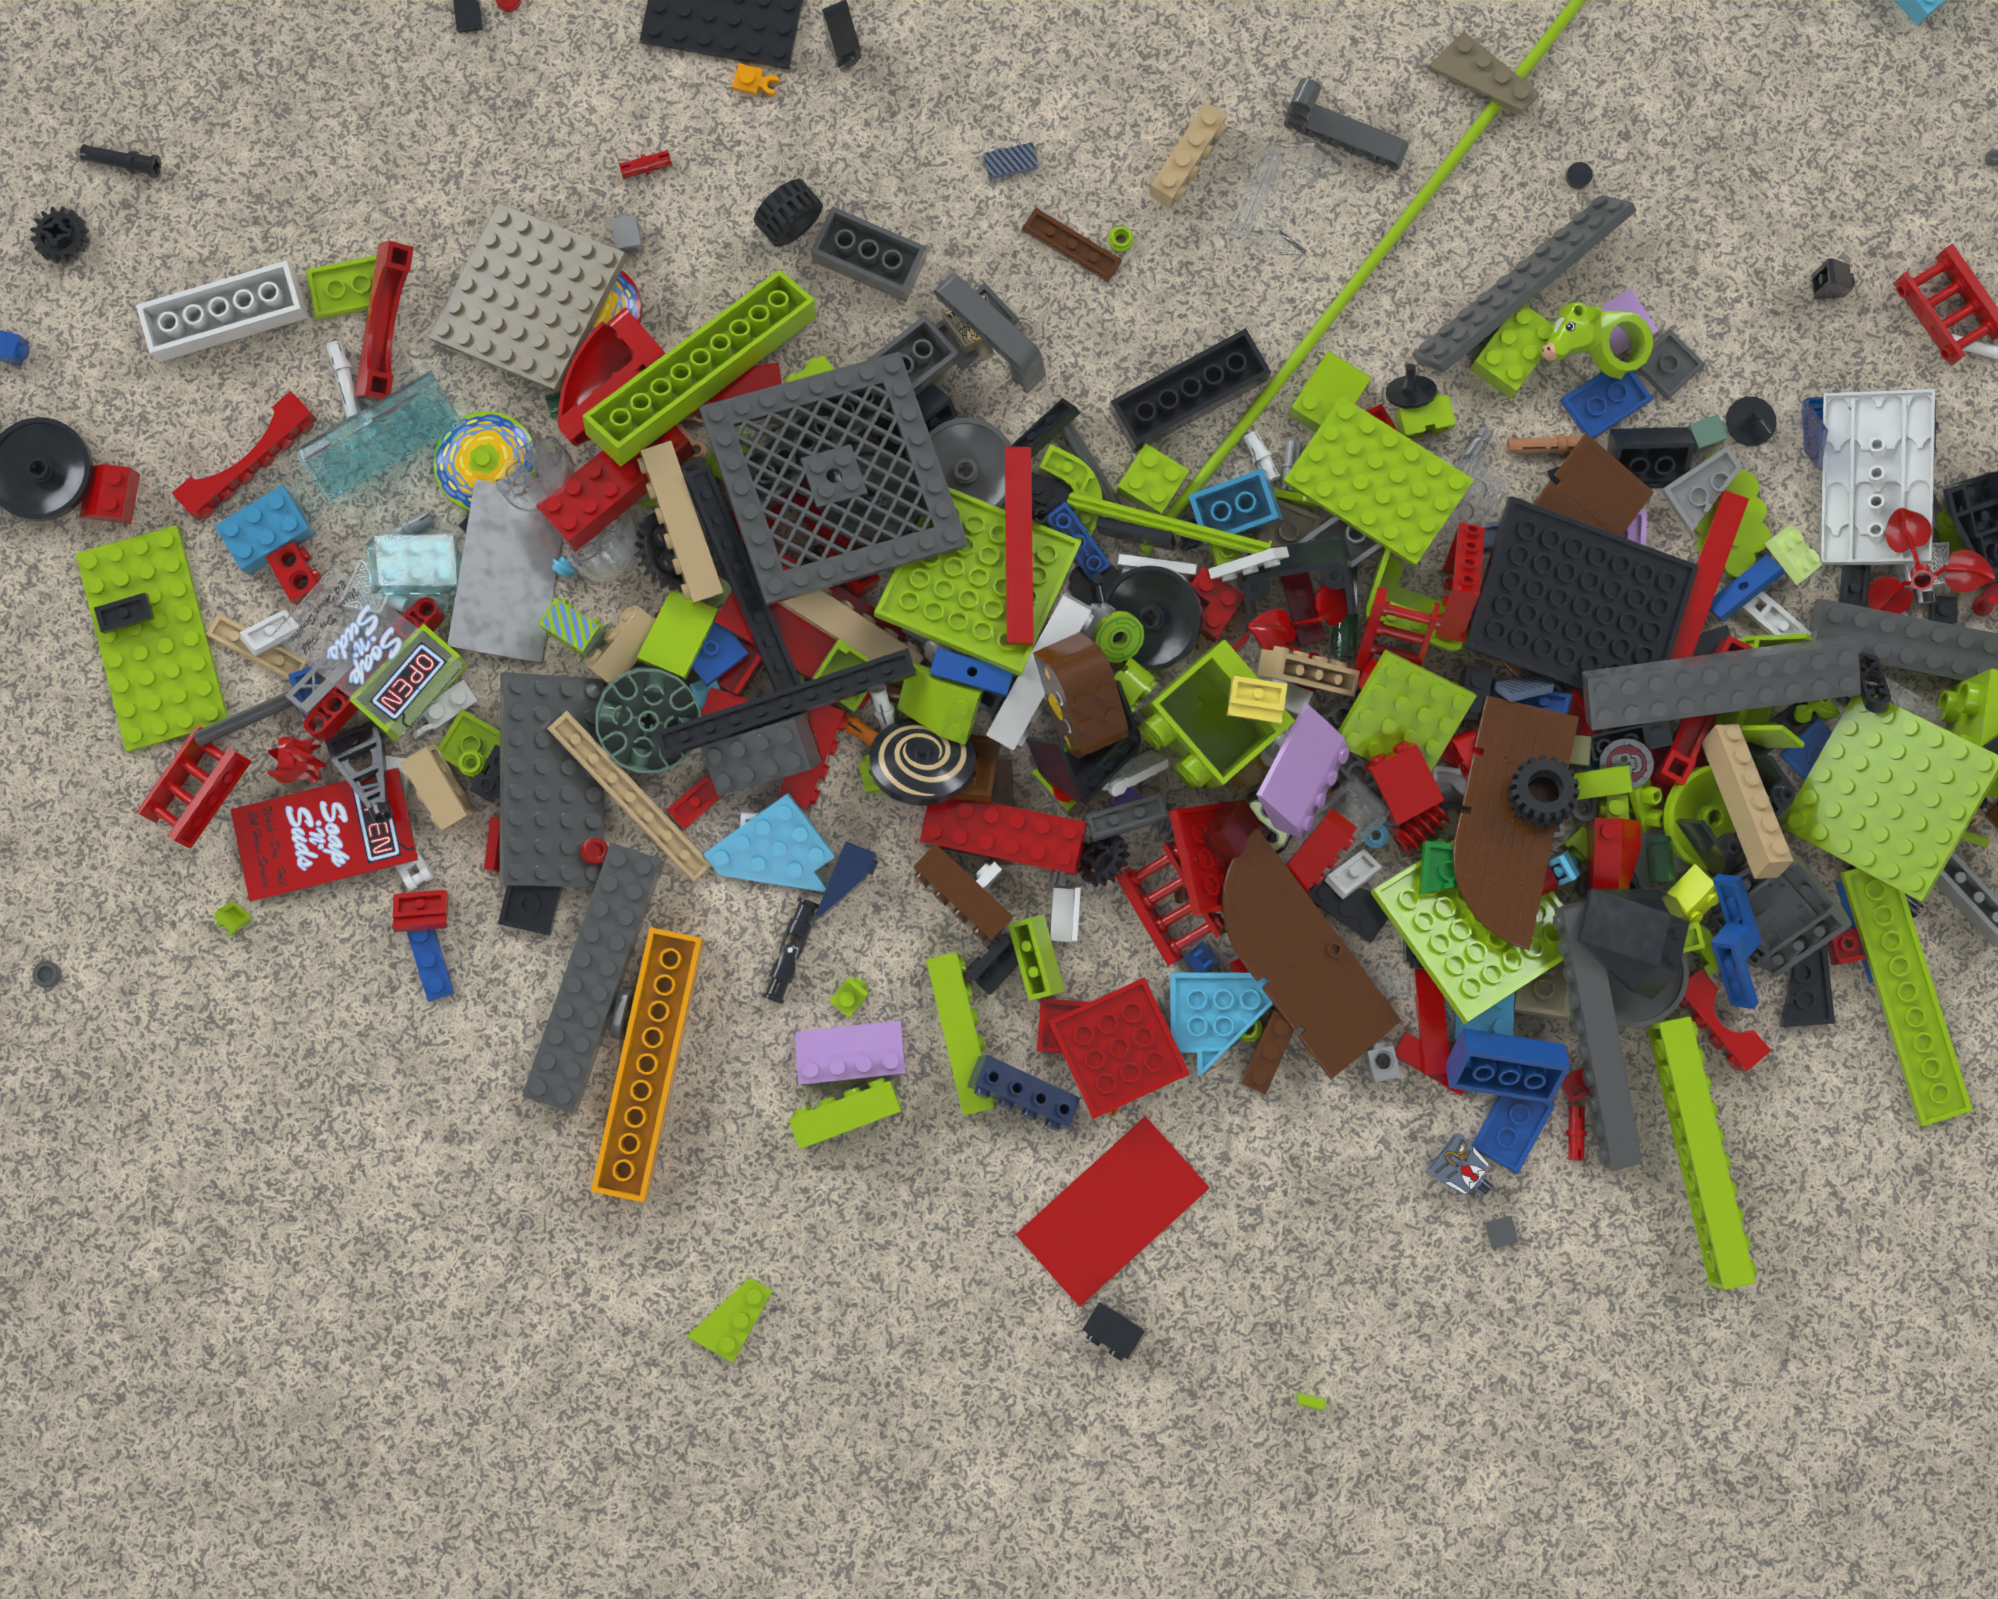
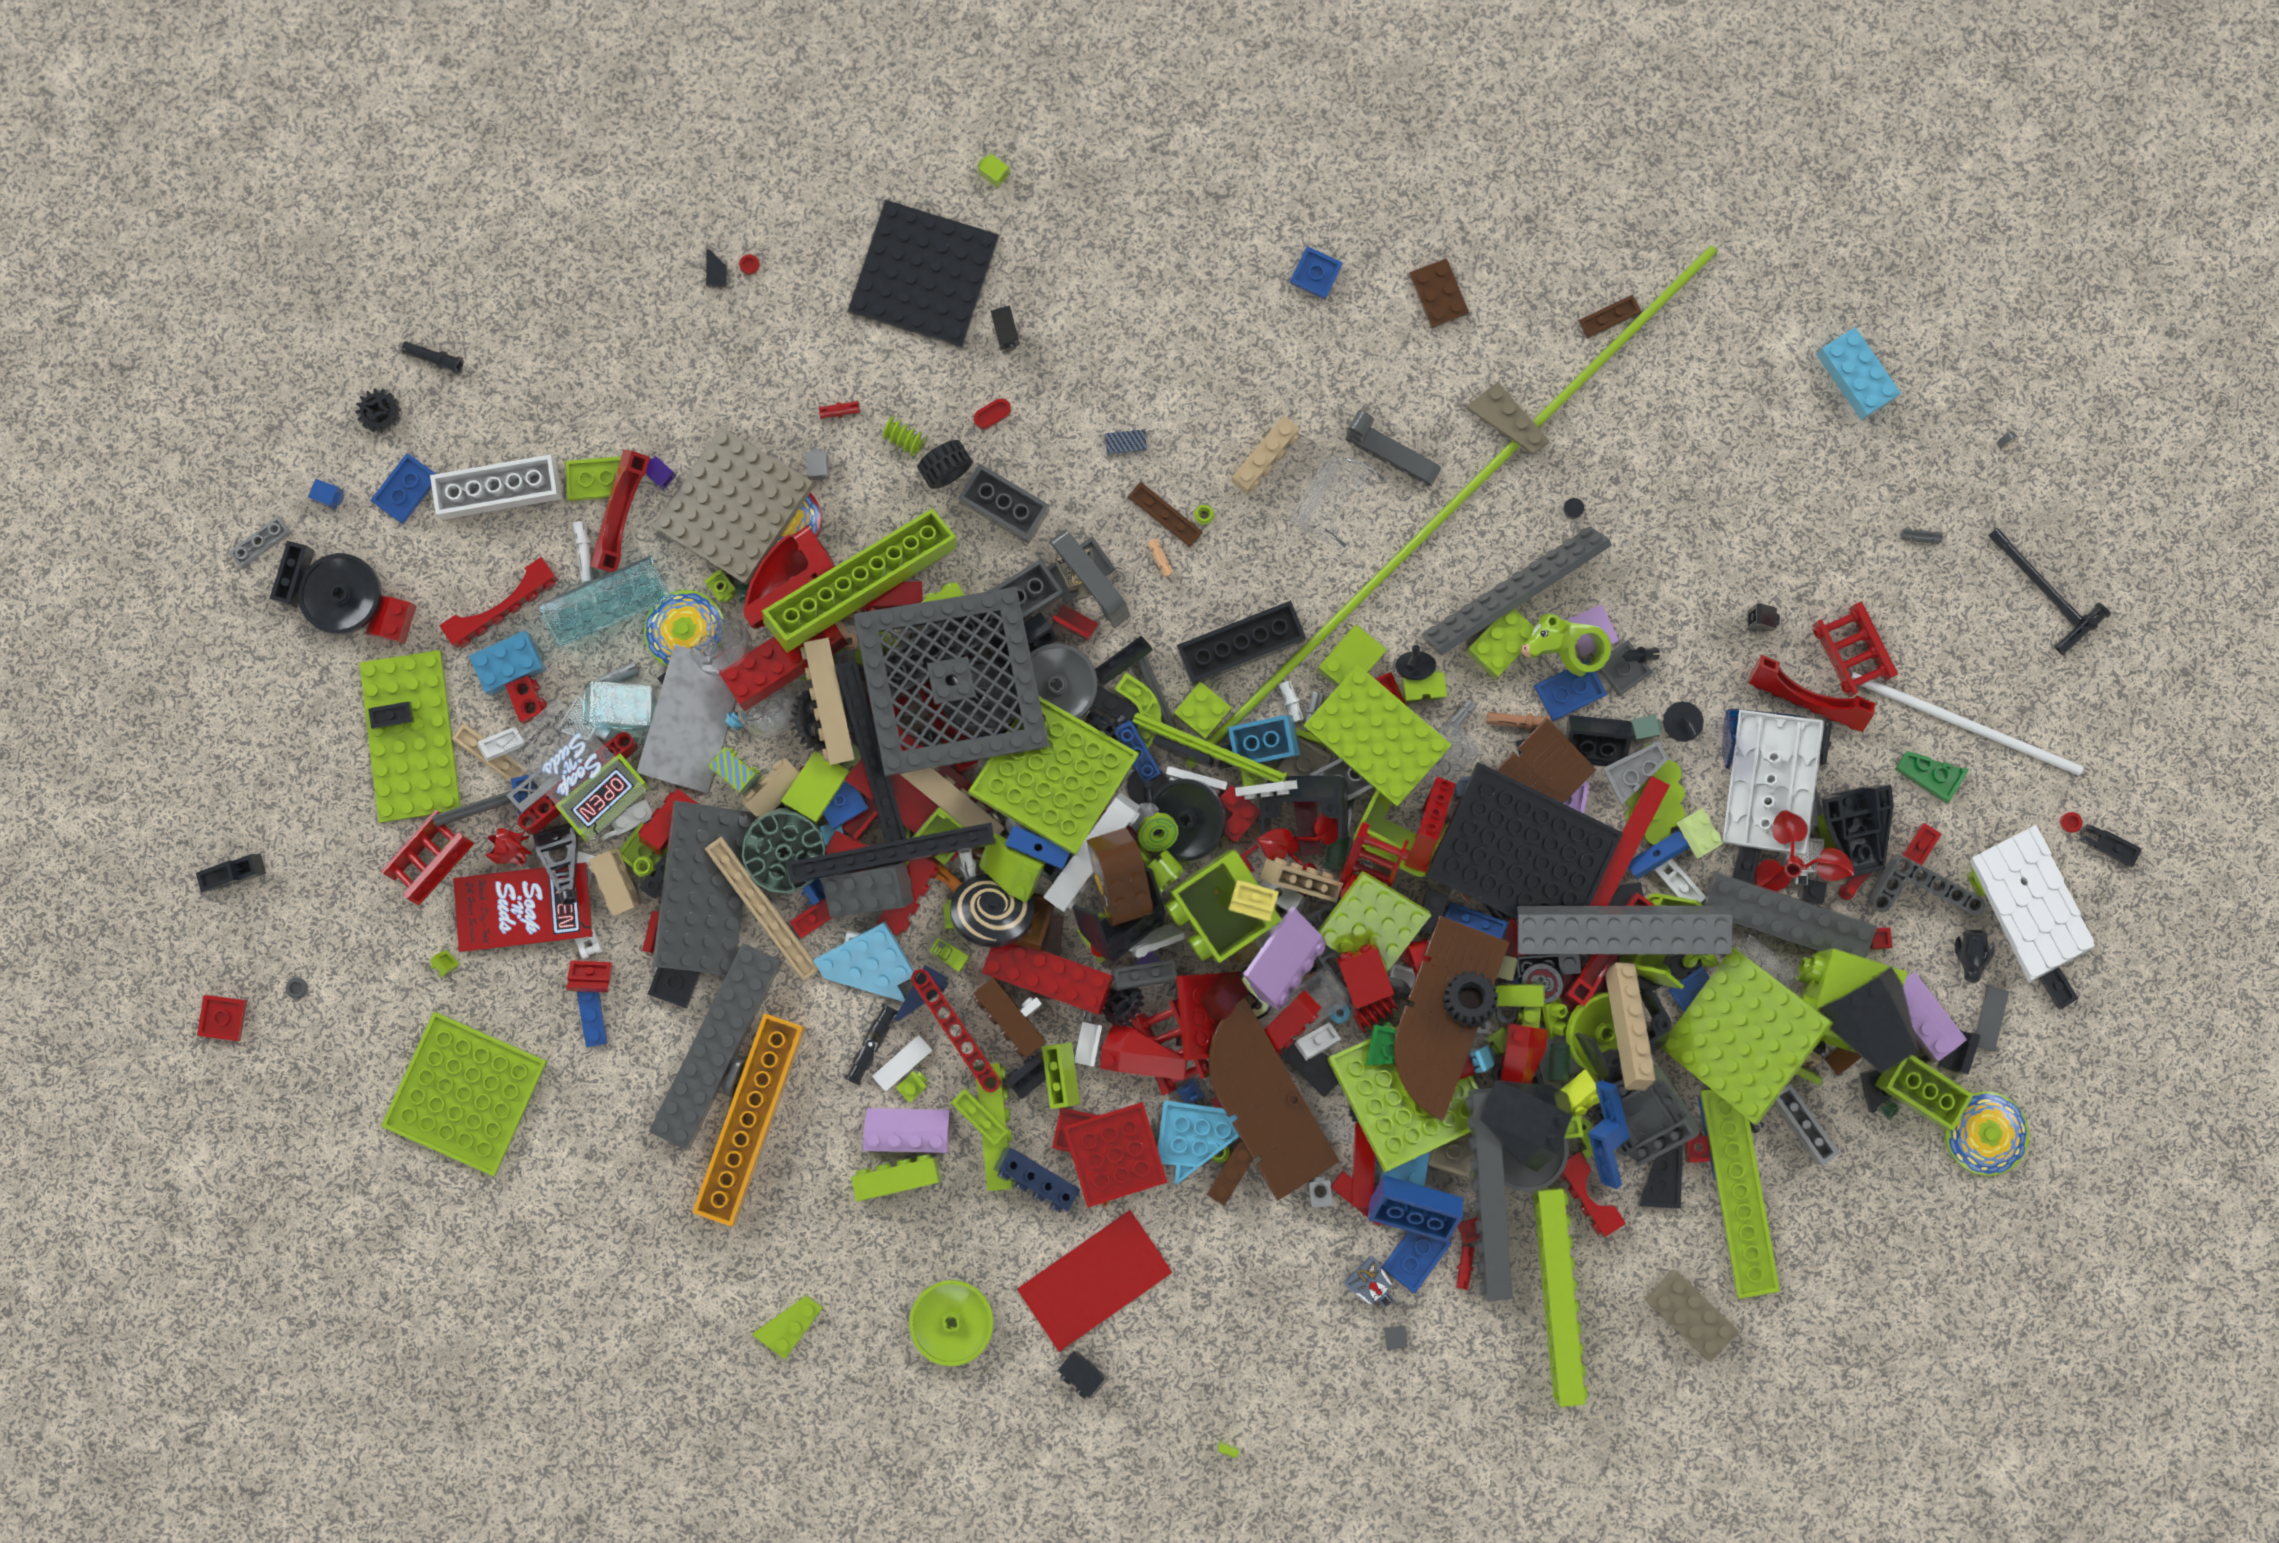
camera: 15 degrees right, 0 degrees up
(105, 329) = (404, 488): none -> blue tile
(279, 1080) = (464, 1093): none -> lime plate
(428, 269) = (659, 473): none -> dark purple brick
(483, 717) = (656, 833): none -> red brick
(517, 393) = (727, 593): none -> lime brick
(594, 851) = (729, 947): red tile -> none
(694, 767) = (814, 891): none -> blue tile
(731, 188) = (903, 437): none -> lime piece
(751, 79) = (930, 352): light orange plate -> none
(833, 969) = (902, 1063): none -> white tile
(838, 146) = (992, 413): none -> red tile
(875, 825) = (949, 954): none -> lime leg
(892, 904) = (946, 1025): none -> red beam
(939, 1287) = (951, 1322): none -> lime dish
(941, 1023) = (980, 1117): none -> lime tile
(977, 392) = (1075, 622): none -> red panel
(1018, 546) = (1088, 752): red tile -> none
(1073, 298) = (1160, 557): none -> light nougat axle
(1127, 917) = (1134, 1053): none -> red wedge
(1524, 687) = (1471, 912): sand blue tile -> none
(1689, 343) = (1641, 654): none -> black axle
(1868, 1155) = (1691, 1315): none -> dark tan brick
(1874, 674) = (1738, 951): black beam -> none
(1960, 382) = (1851, 712): none -> red arch

